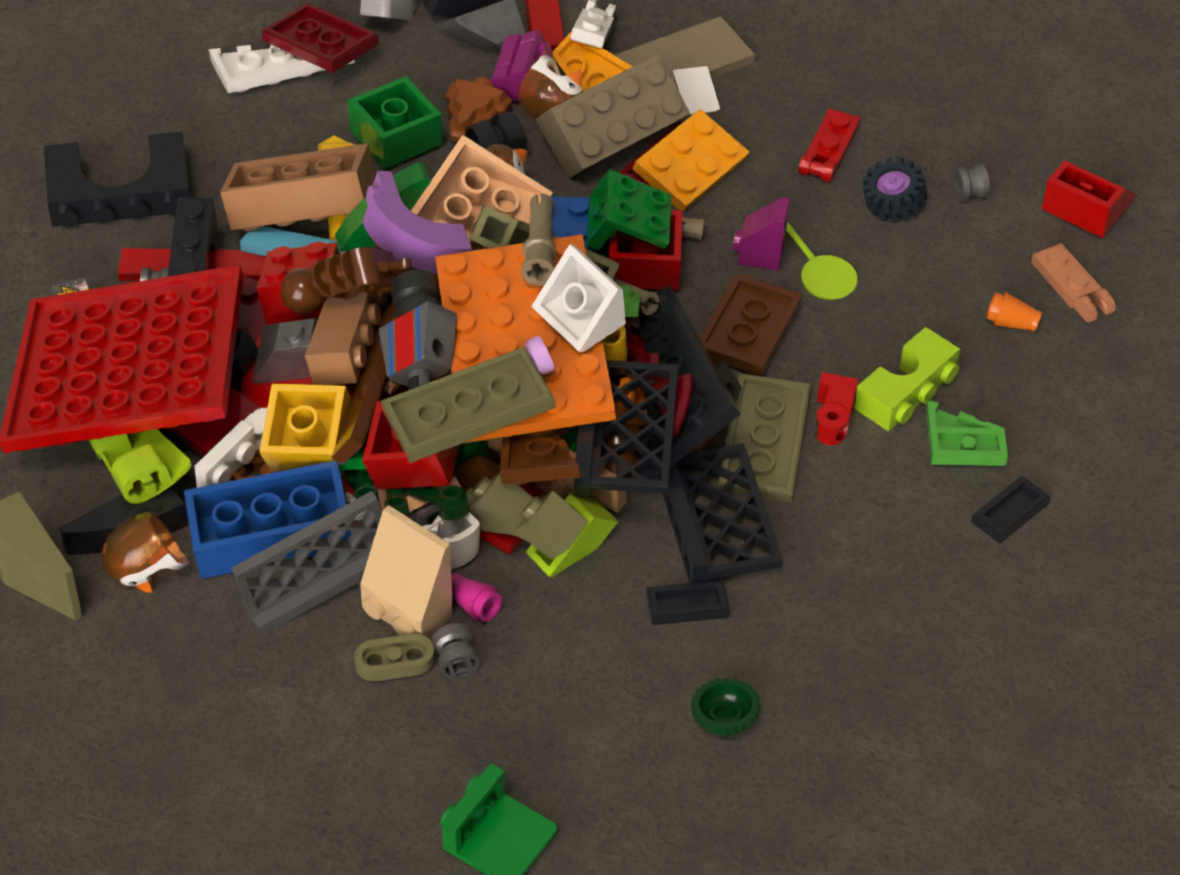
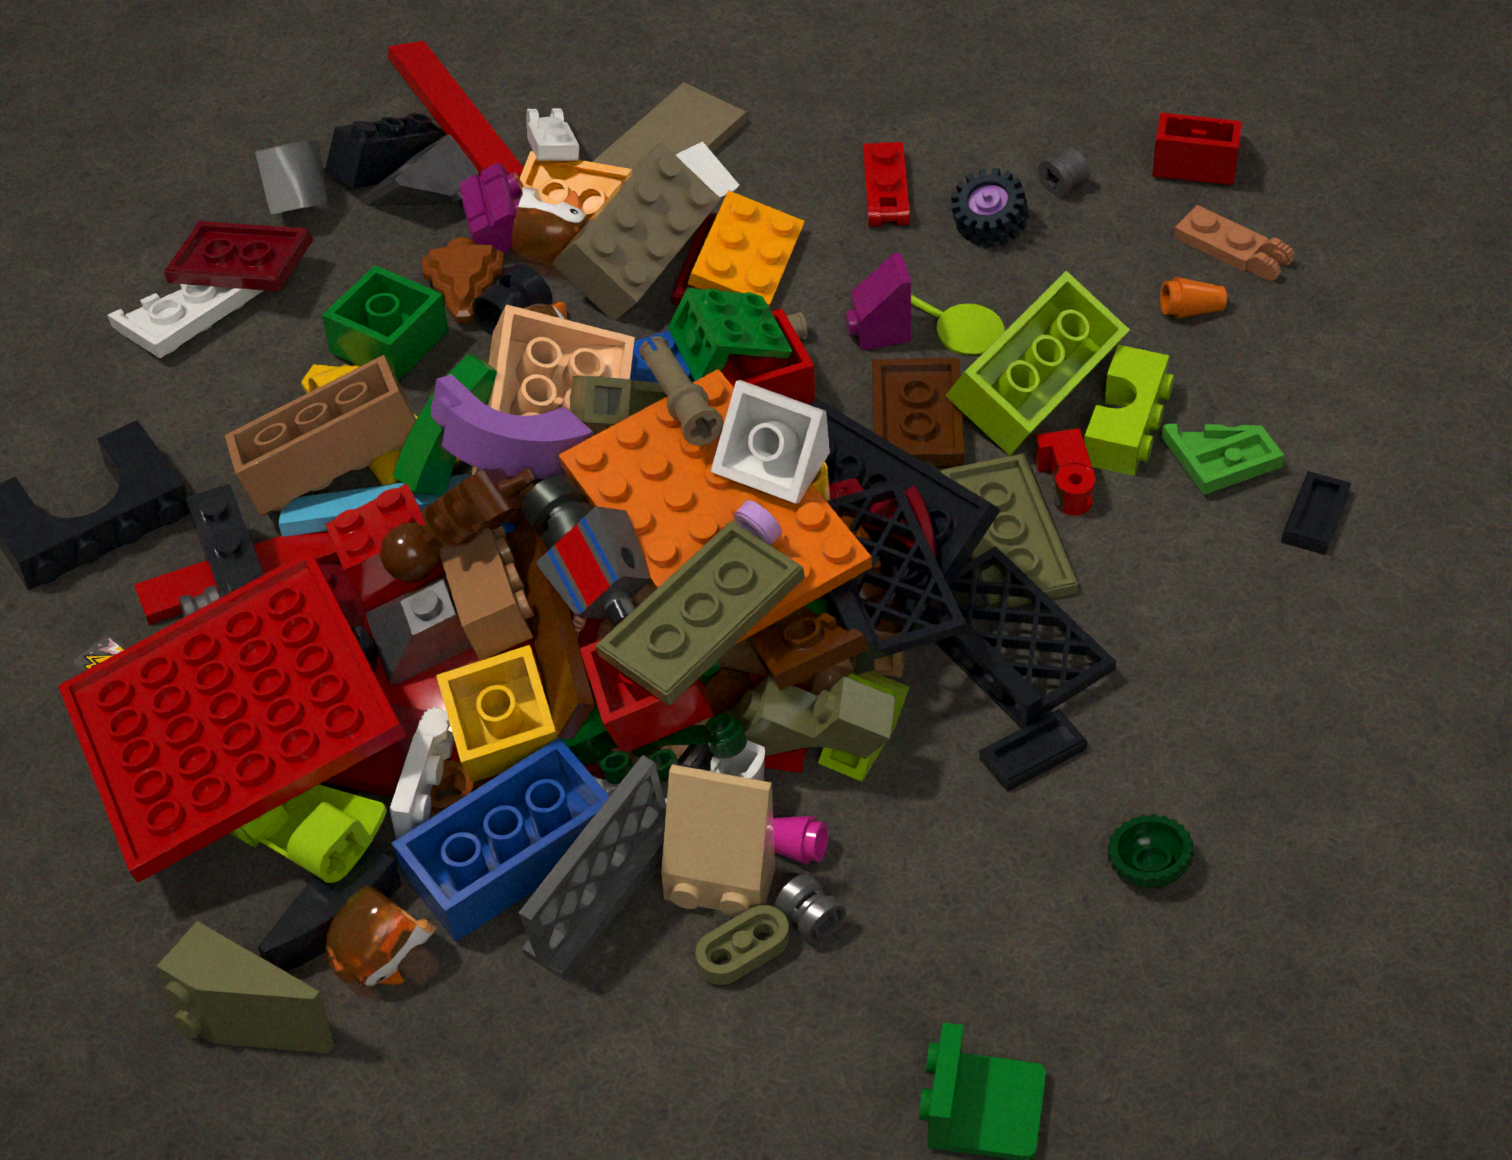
camera: 20 degrees left, 0 degrees up
(854, 318) = (1037, 362): none -> lime brick

